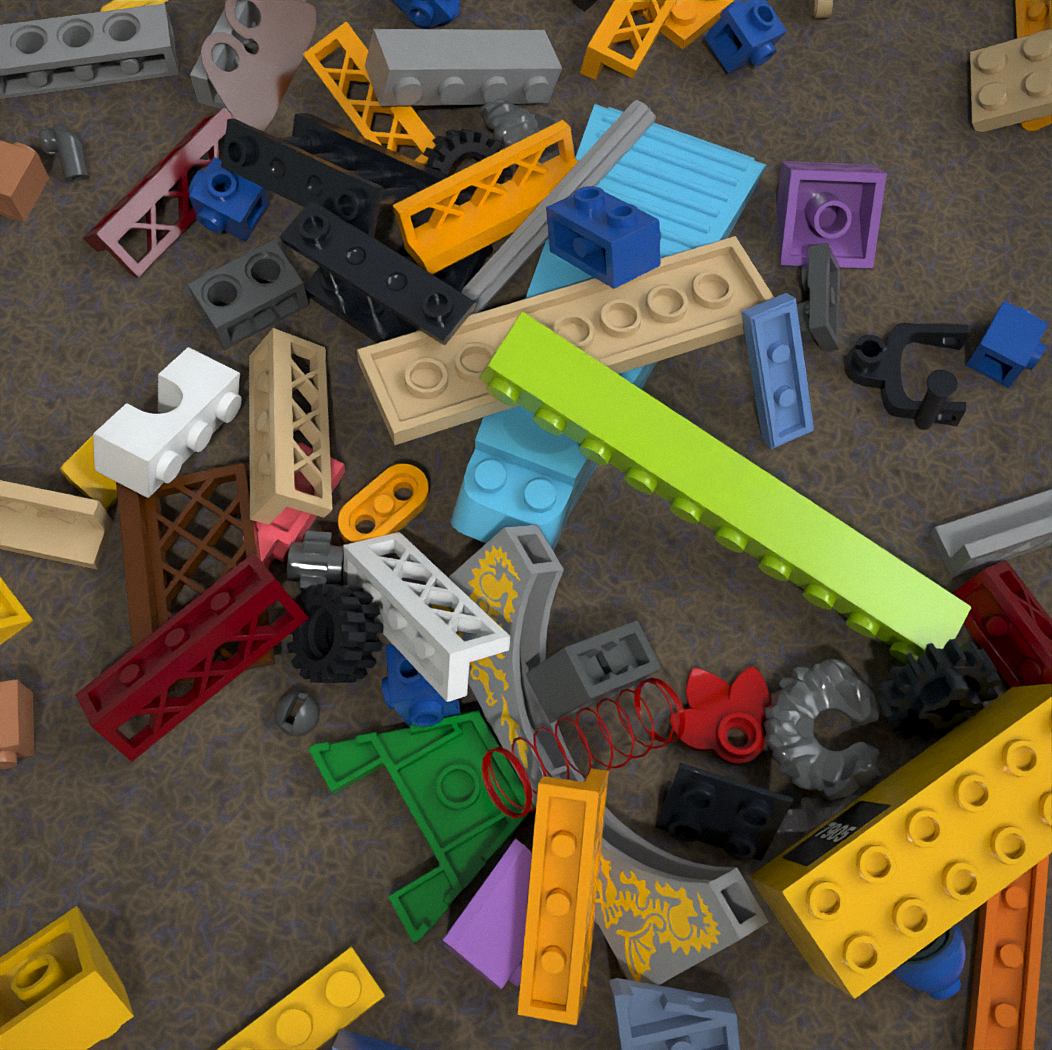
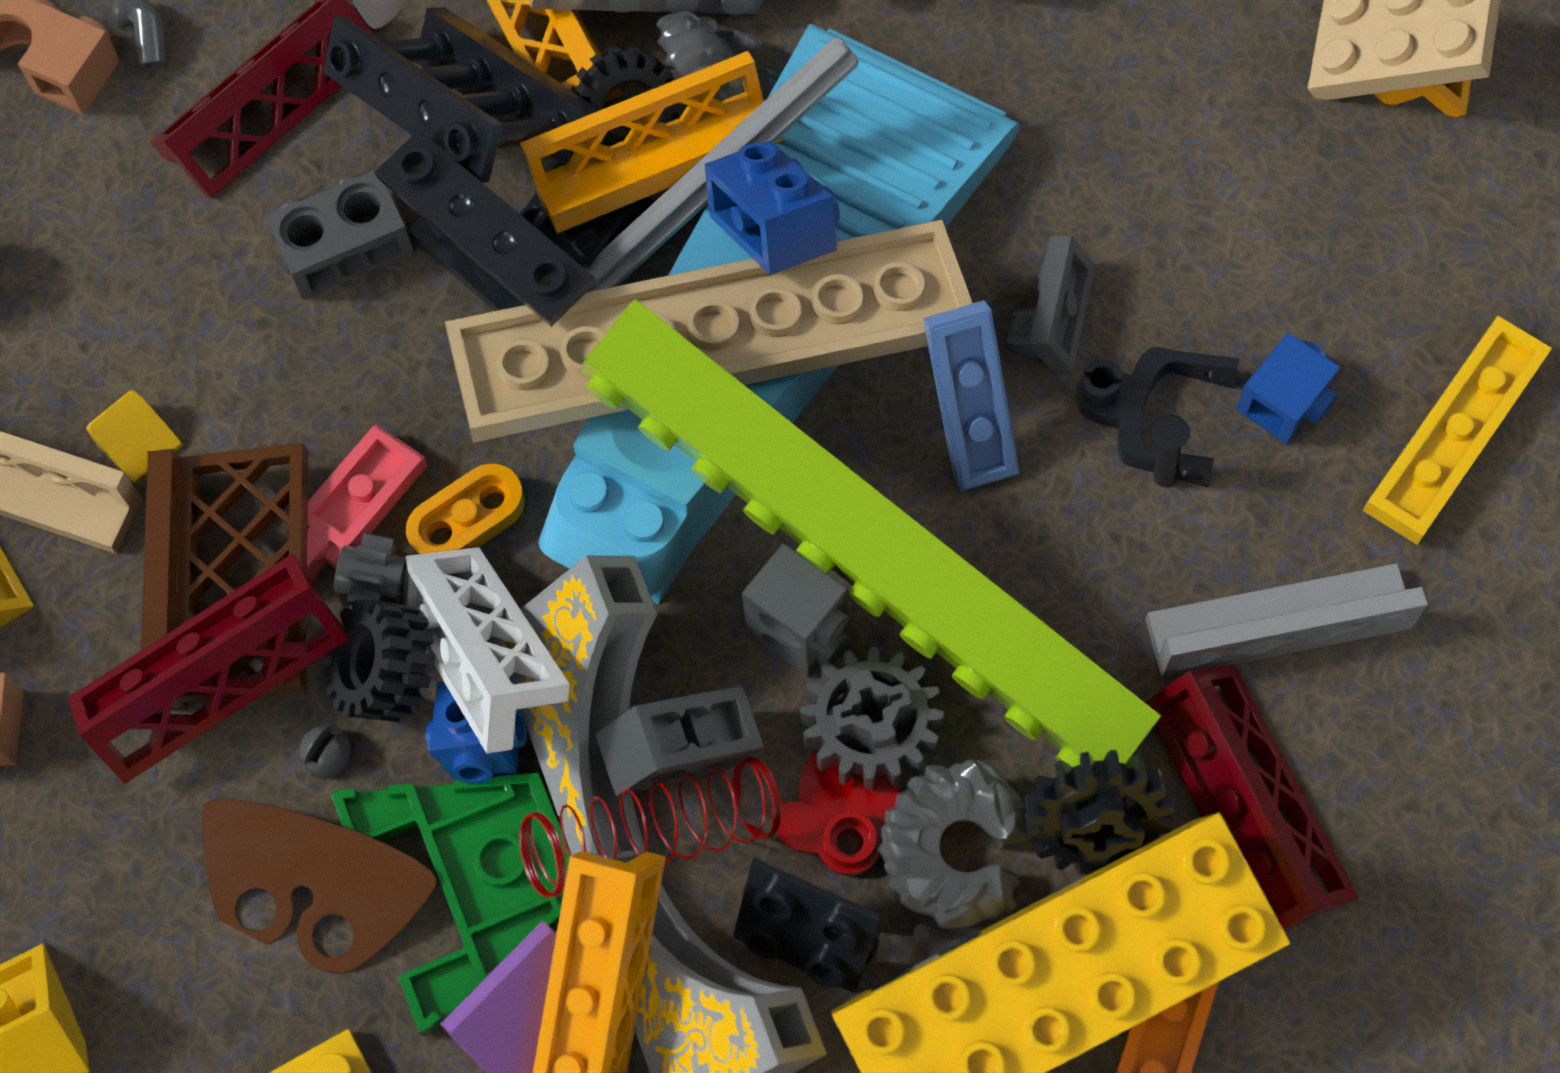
camera: 15 degrees right, 0 degrees up
(150, 448) = (192, 414): white arch -> none
(227, 201) = (327, 114): blue brick -> none
(276, 417) = (342, 401): tan fence -> none
(328, 811) = (347, 872): none -> reddish brown piece
(671, 555) = (797, 611): none -> dark grey brick
(733, 655) = (891, 697): none -> dark grey gear
(832, 206) = (1090, 188): medium lavender slope -> none

